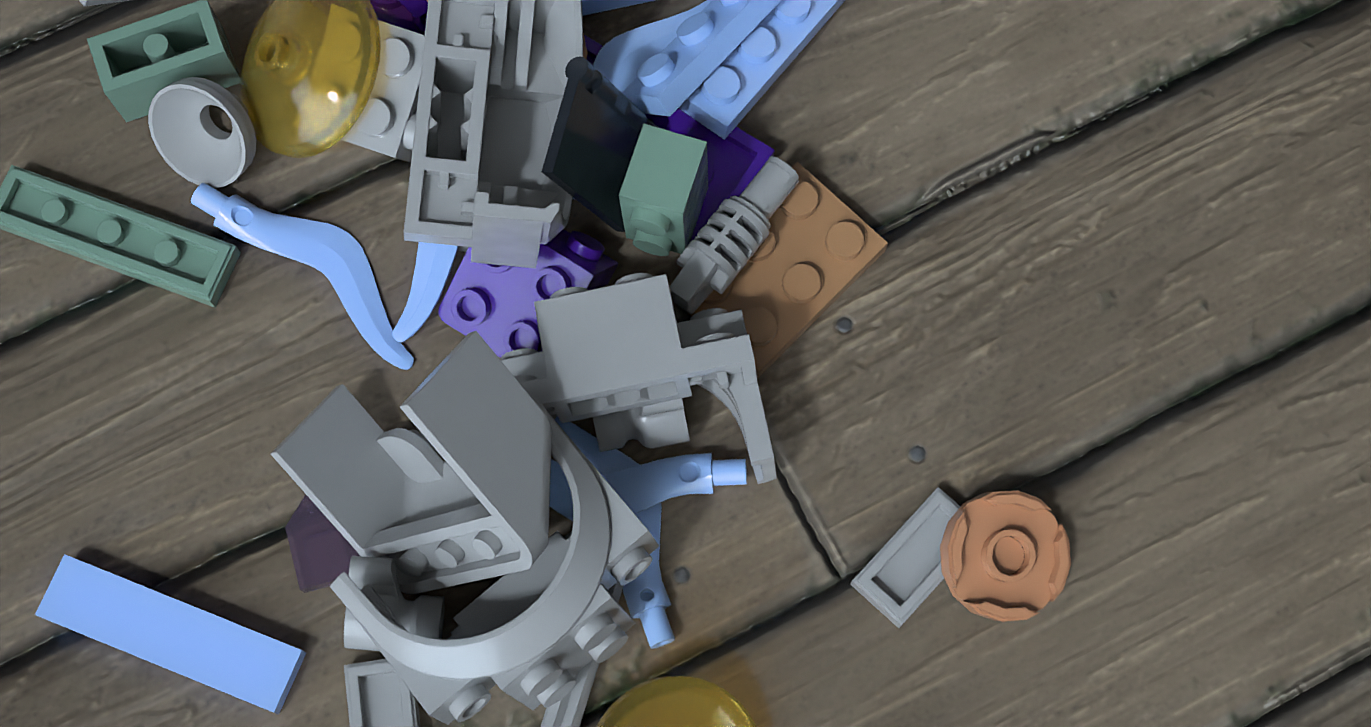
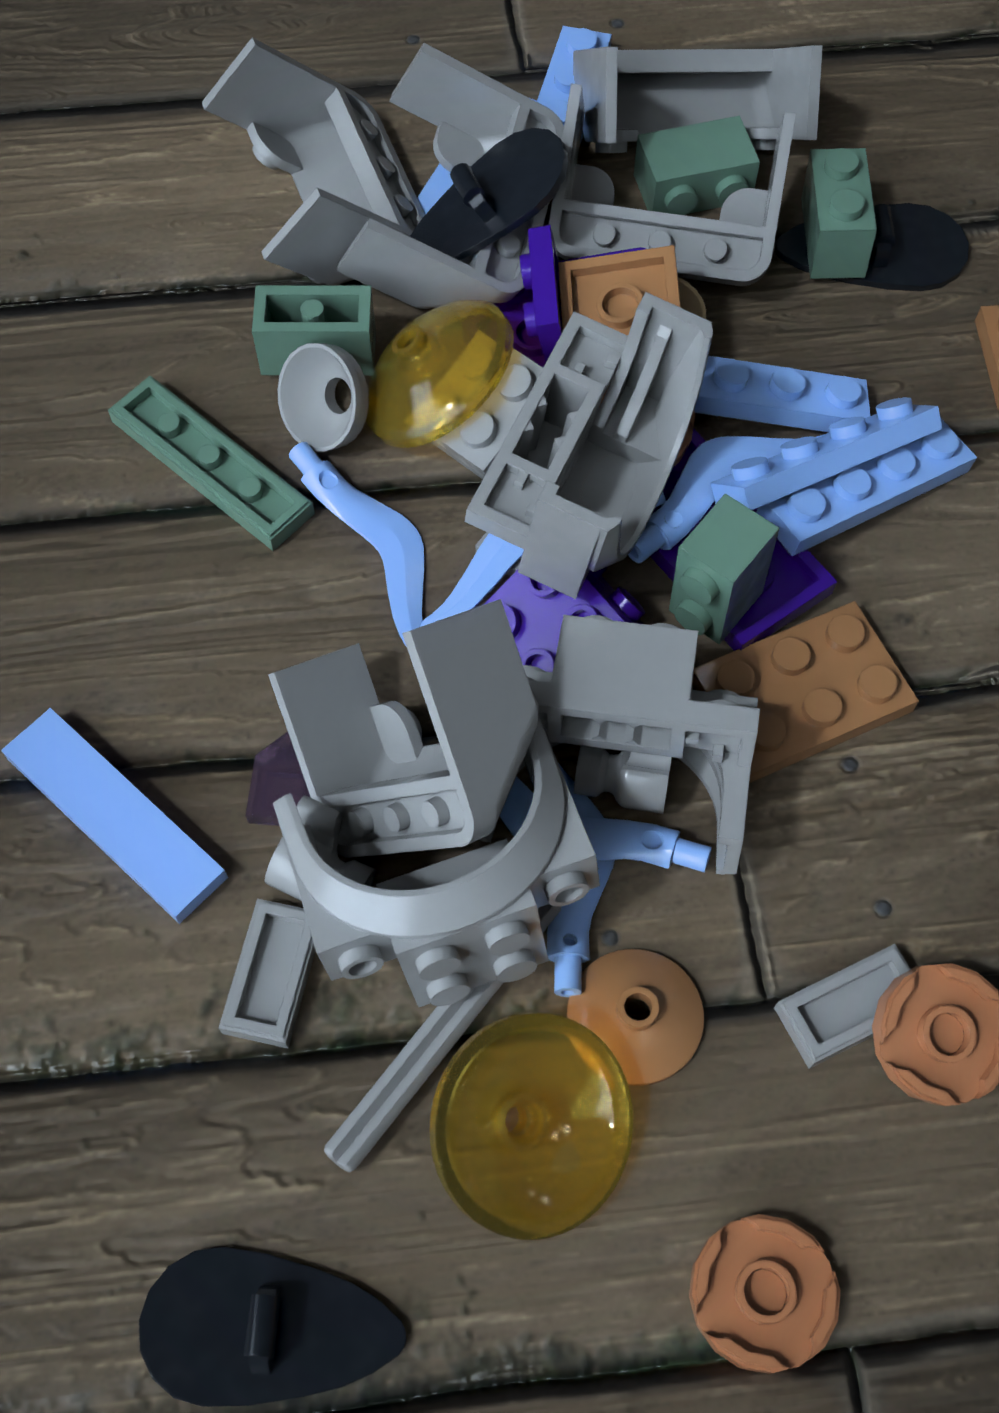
camera: 20 degrees right, 10 degrees down
(593, 141) = (668, 501): black piece -> none
(731, 236) = (770, 637): light grey hinge -> none
(767, 630) = (649, 1047): none -> medium nougat dish

